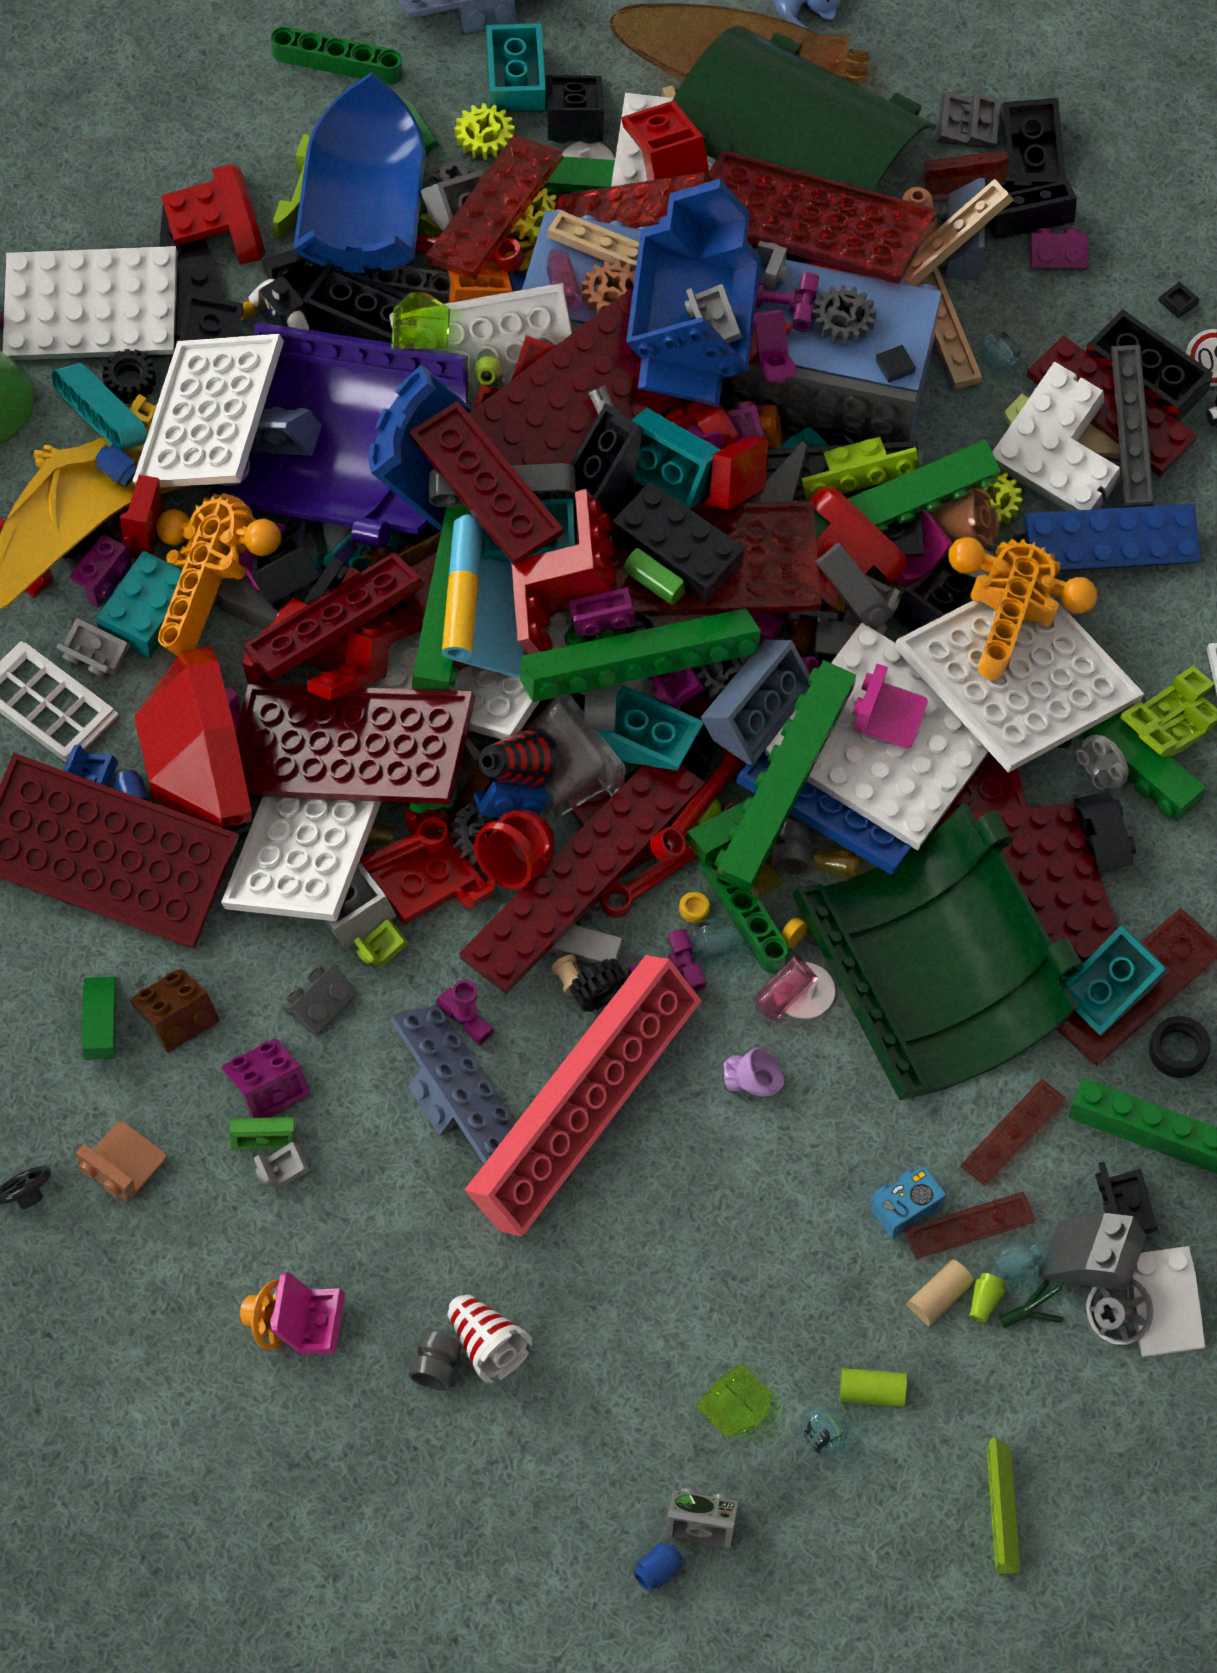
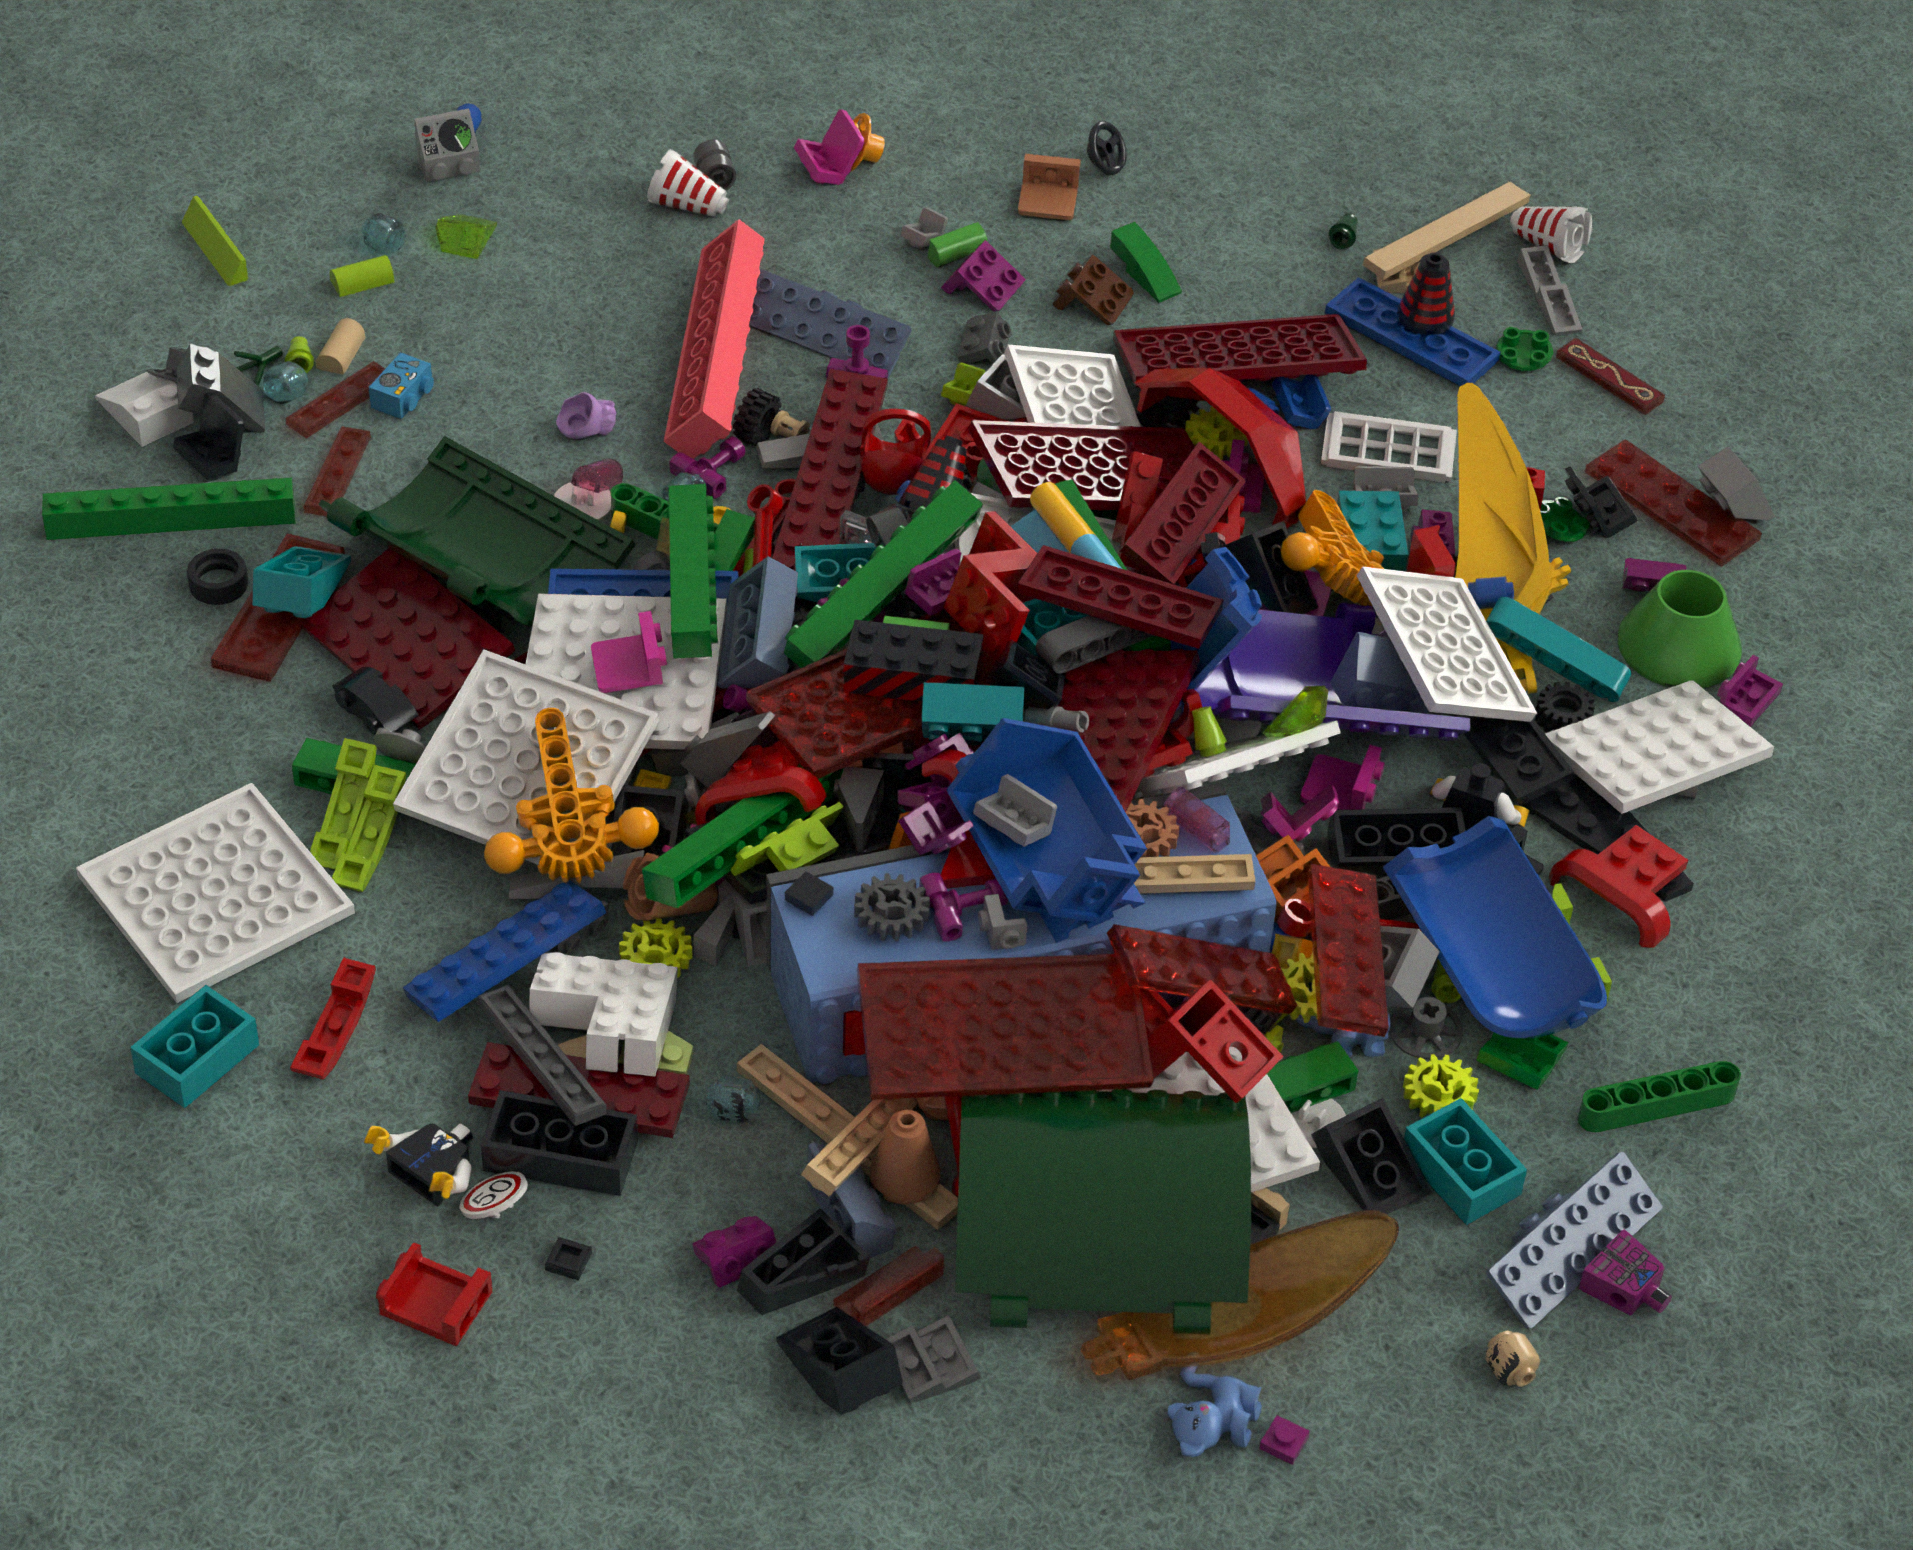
camera: 150 degrees right, 15 degrees down
(738, 472) = (898, 739): red container -> none

